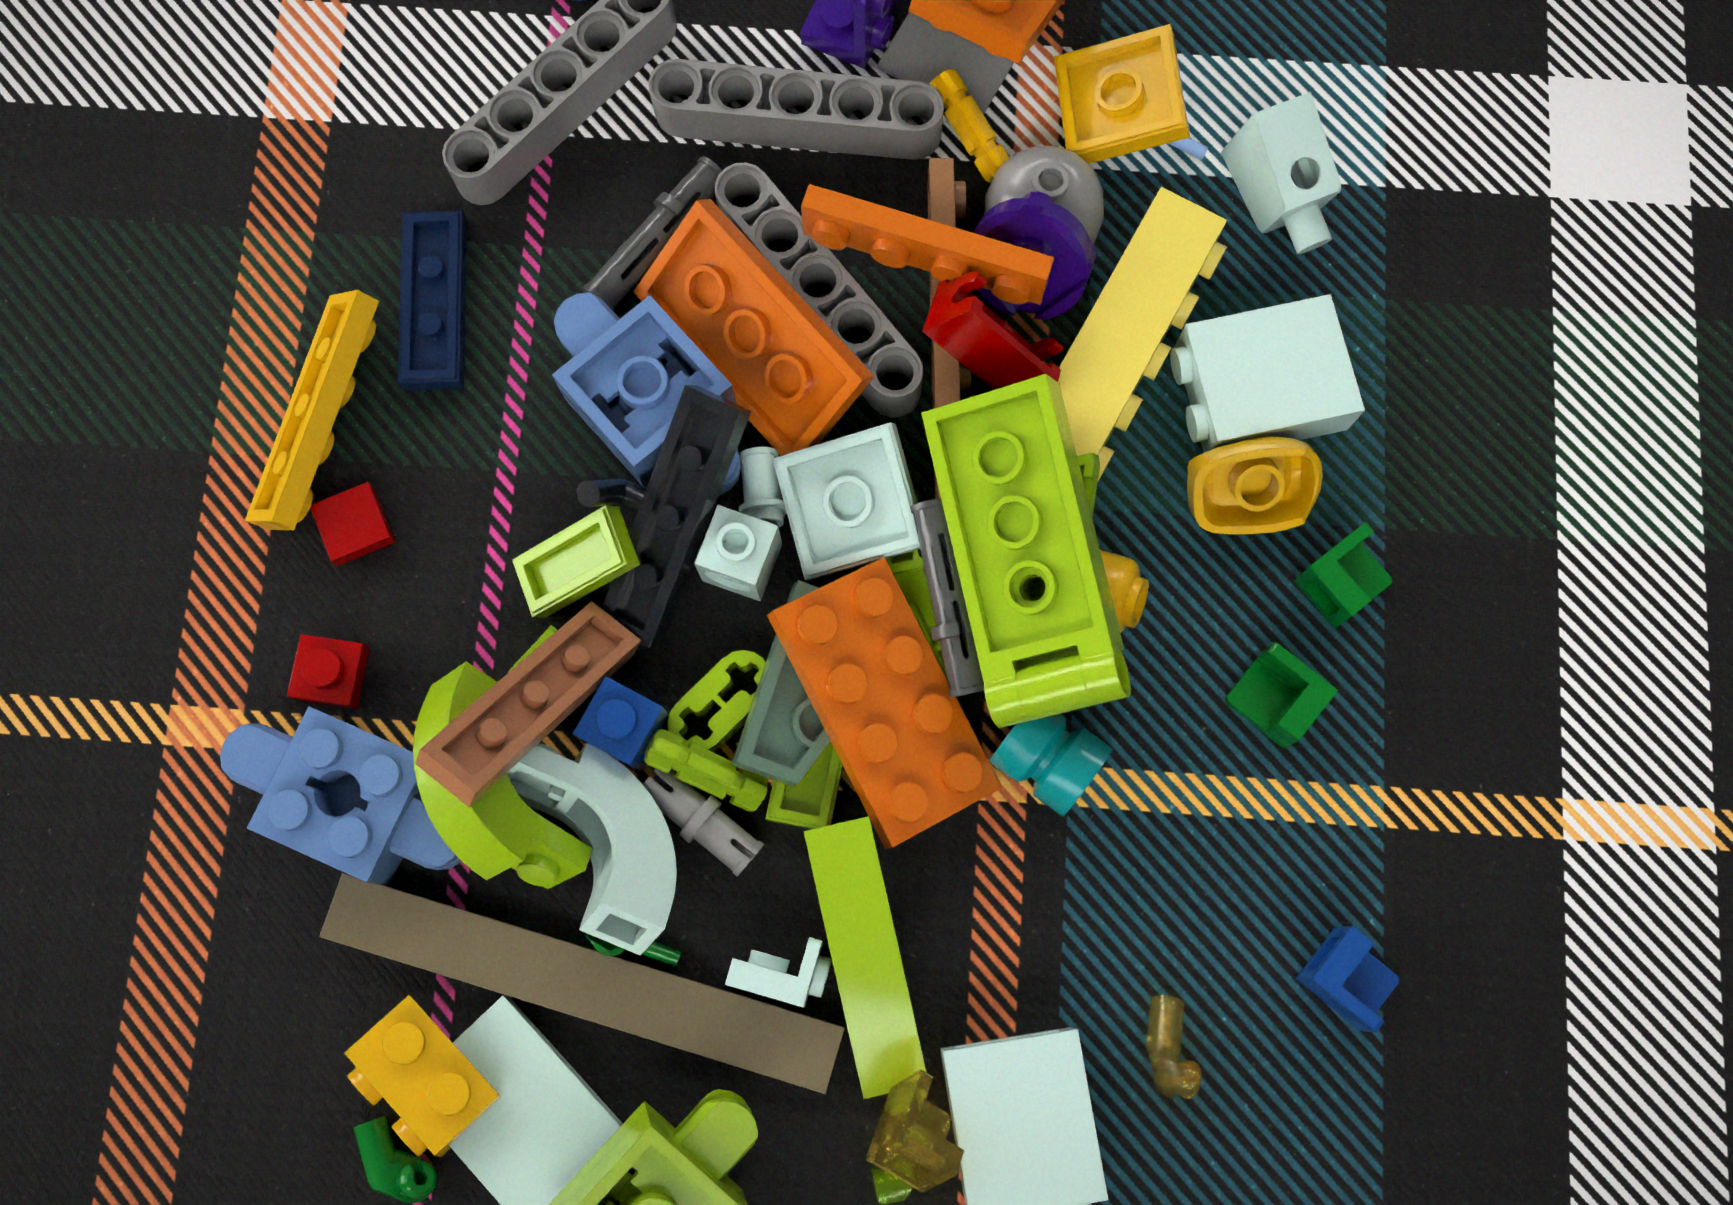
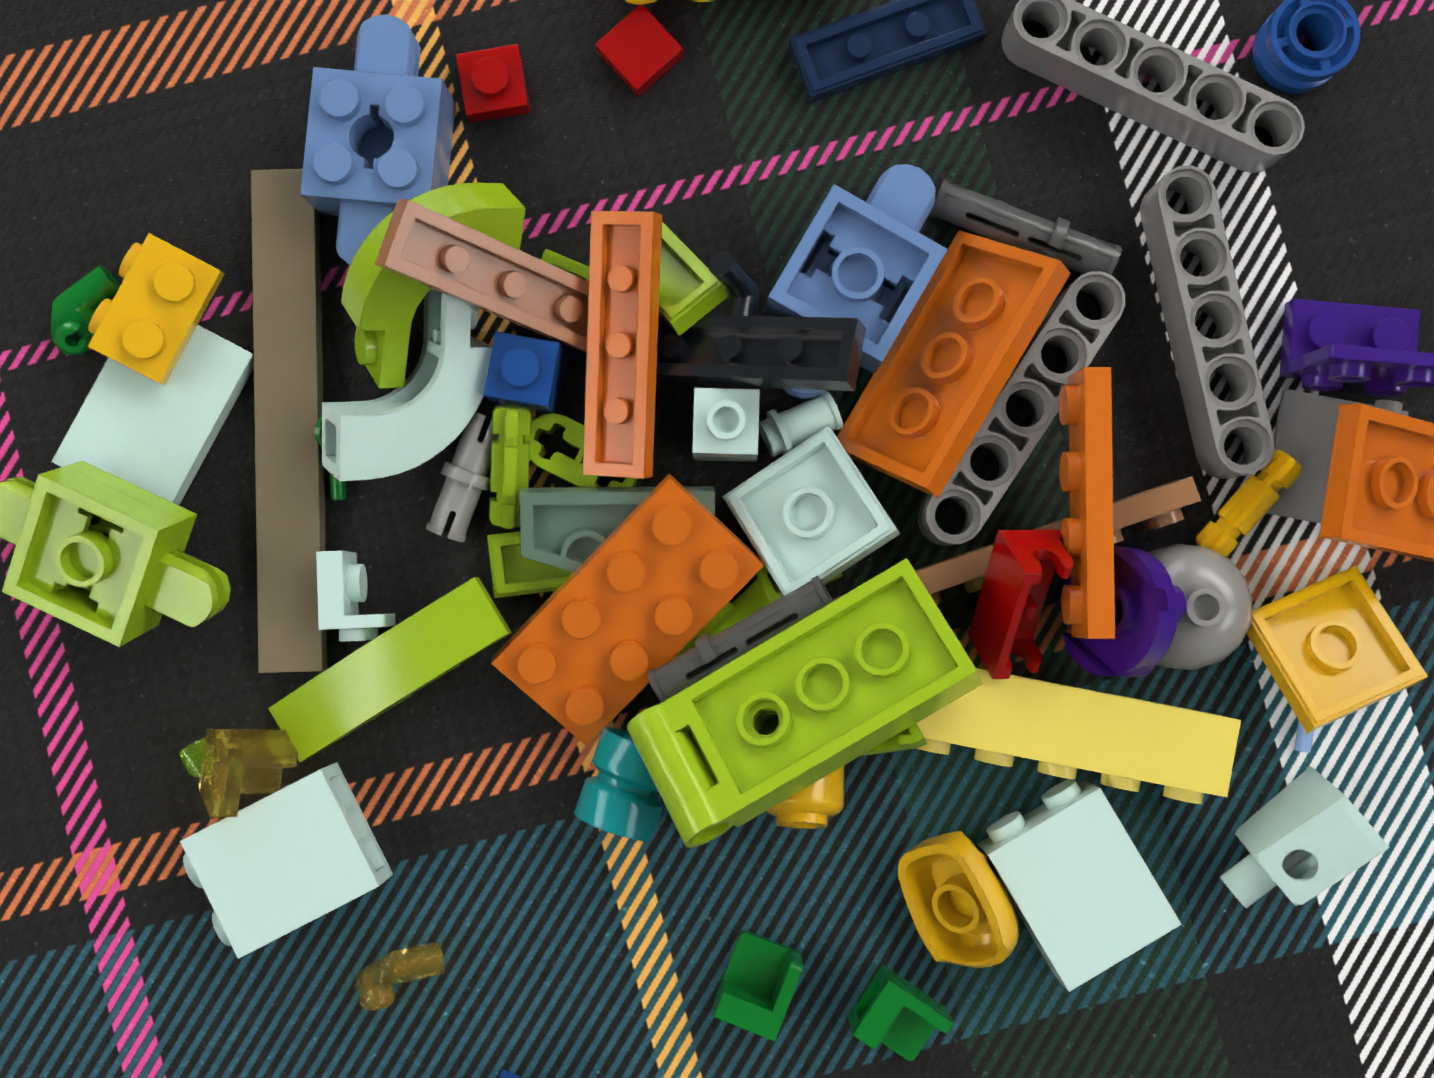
camera: 75 degrees right, 10 degrees up
(628, 617) = (622, 343): none -> orange plate

